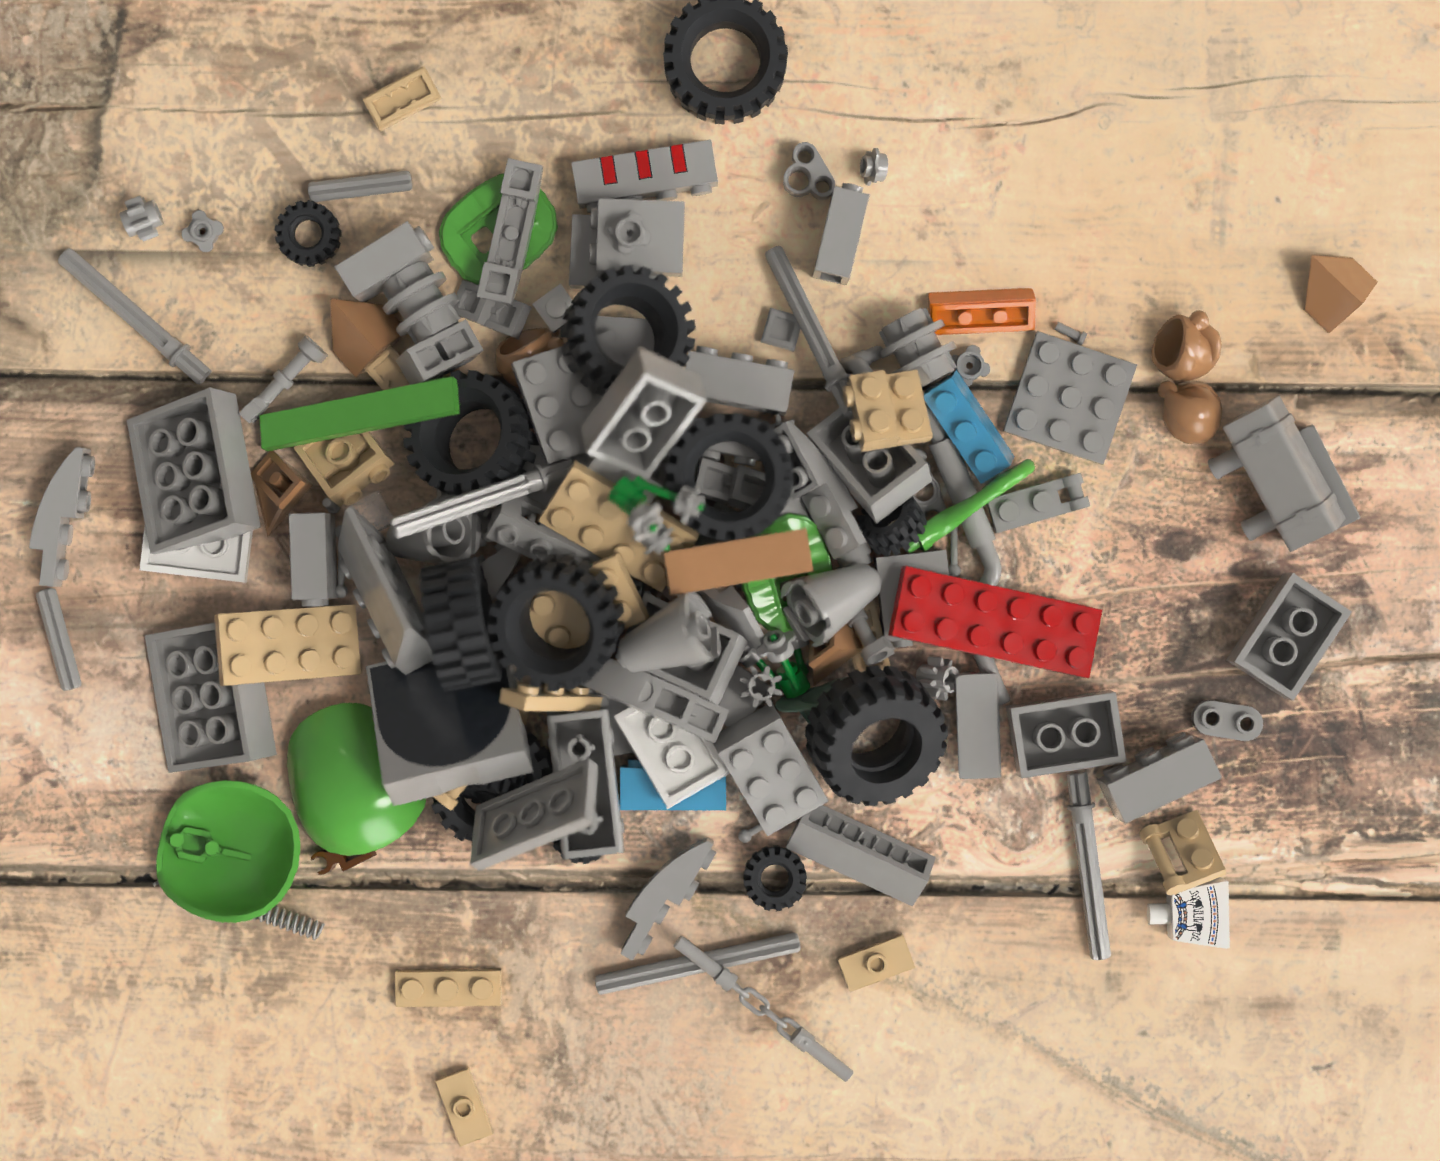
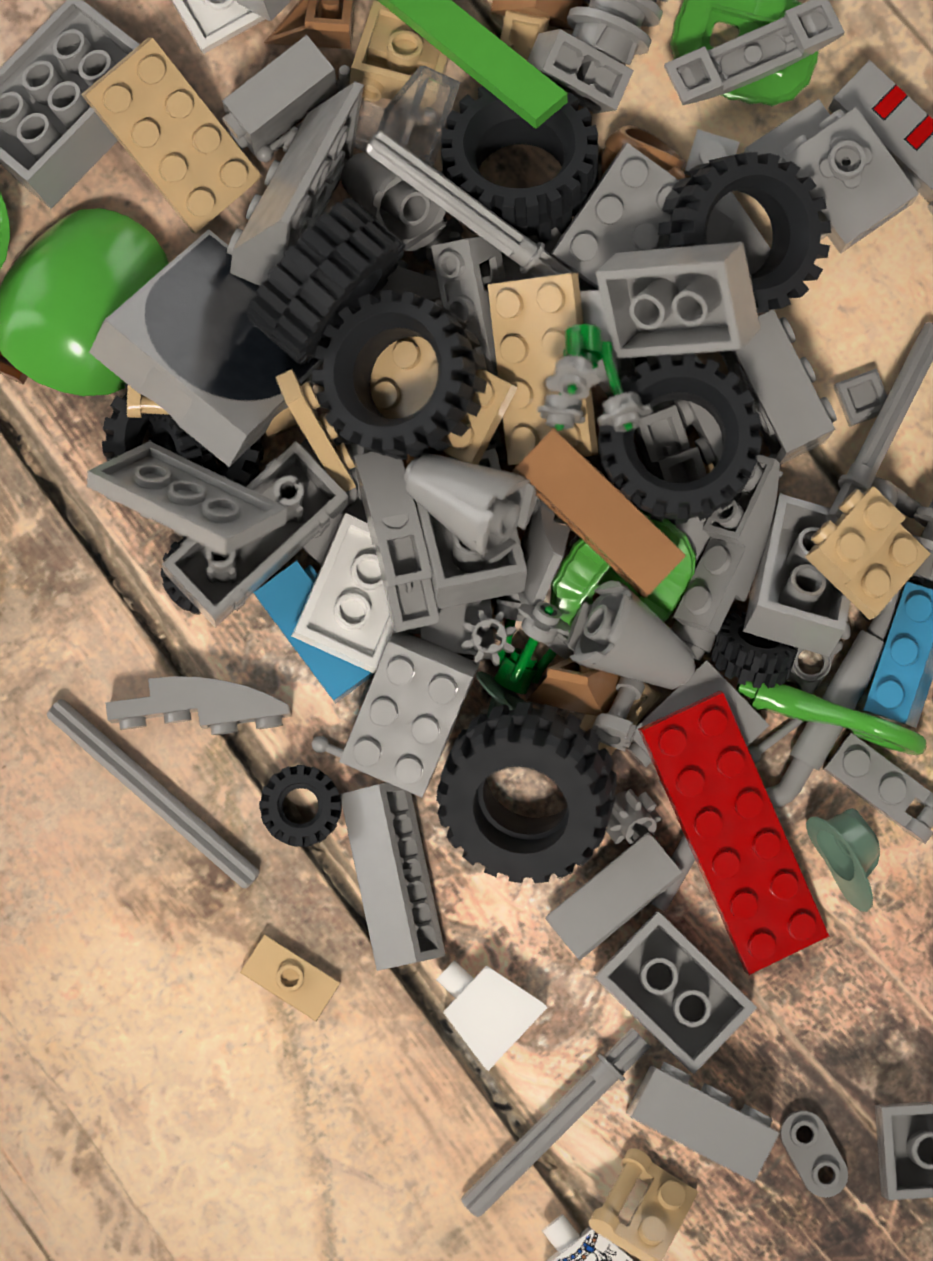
camera: 50 degrees right, 5 degrees down
(394, 480) = (421, 112): none -> clear slope
(491, 314) = (657, 96): light grey slope -> none
(800, 1038) = (155, 957): light grey piece -> none
(990, 856) = (488, 1011): none -> white torso
(1061, 557) = (849, 852): none -> sand green piece

